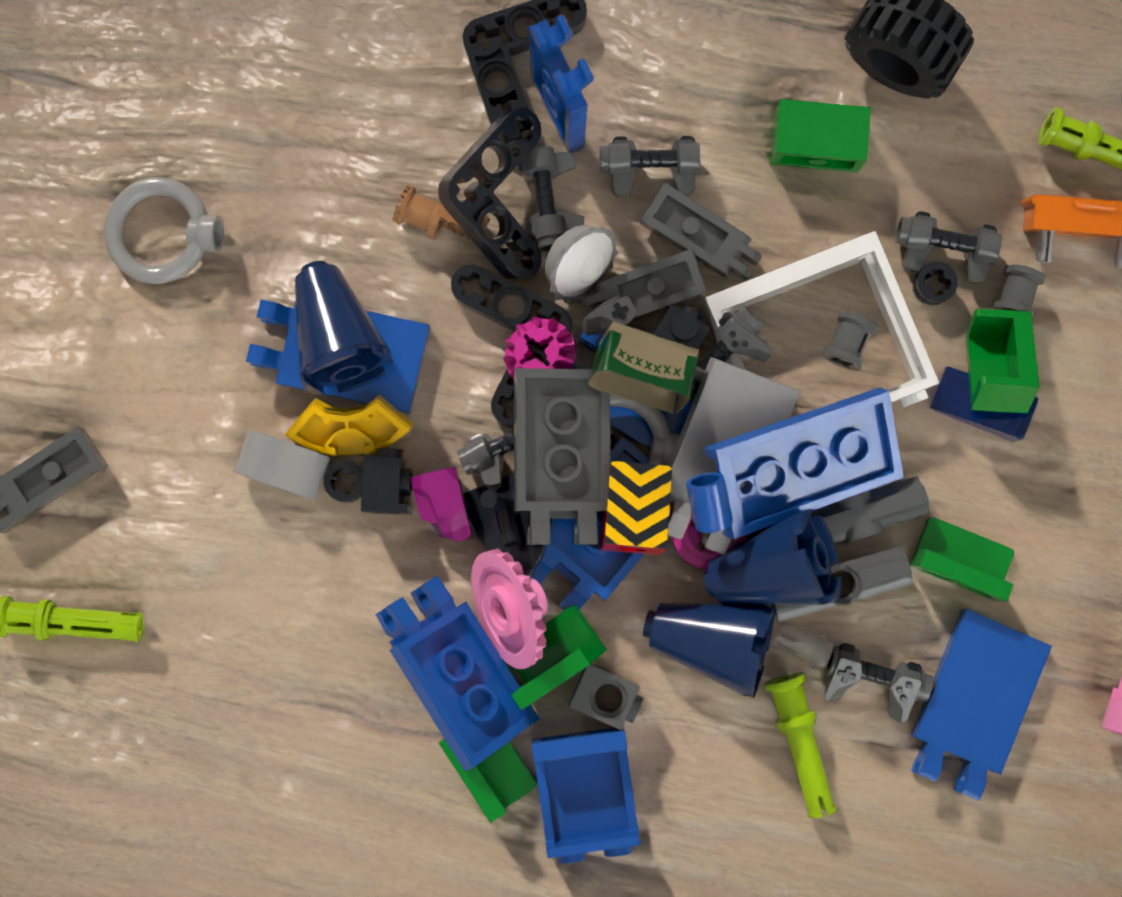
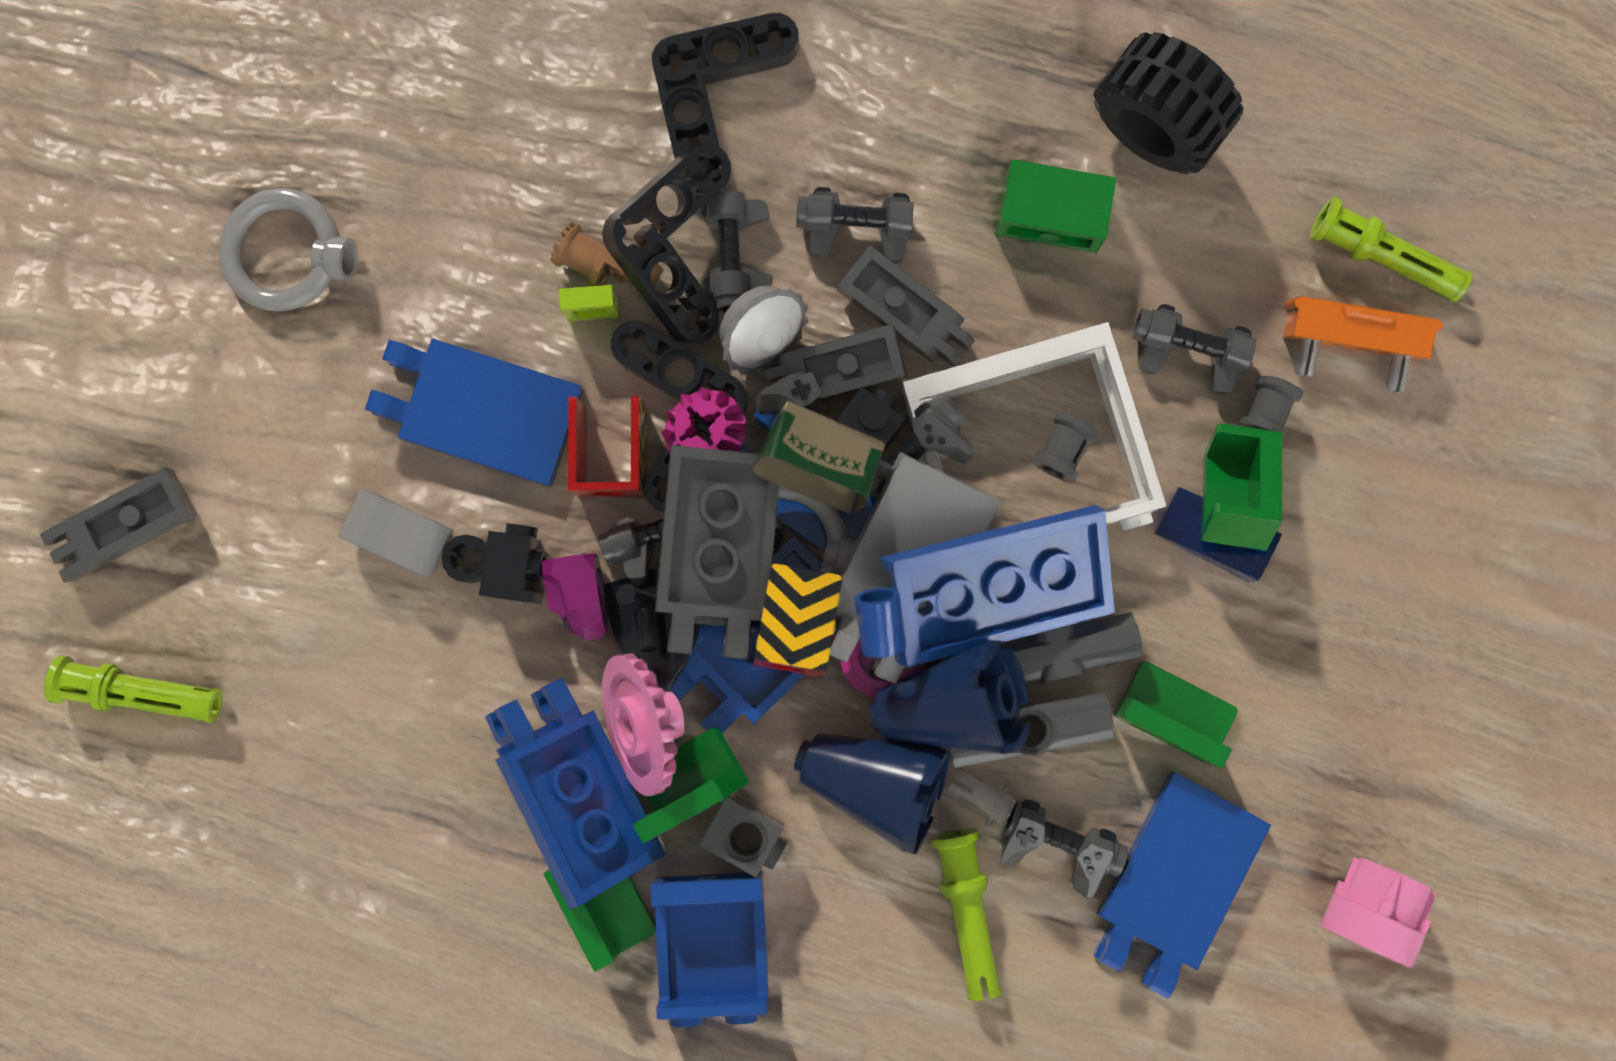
camera: 10 degrees right, 0 degrees up
(335, 332) = (468, 386): dark blue cone -> none
(349, 431) = (477, 500): yellow tile -> none
(429, 253) = (589, 303): none -> lime tile
(457, 411) = (578, 454): none -> red piece
(557, 83) = (752, 116): blue tile -> none
(923, 291) = (1187, 382): black bush -> none

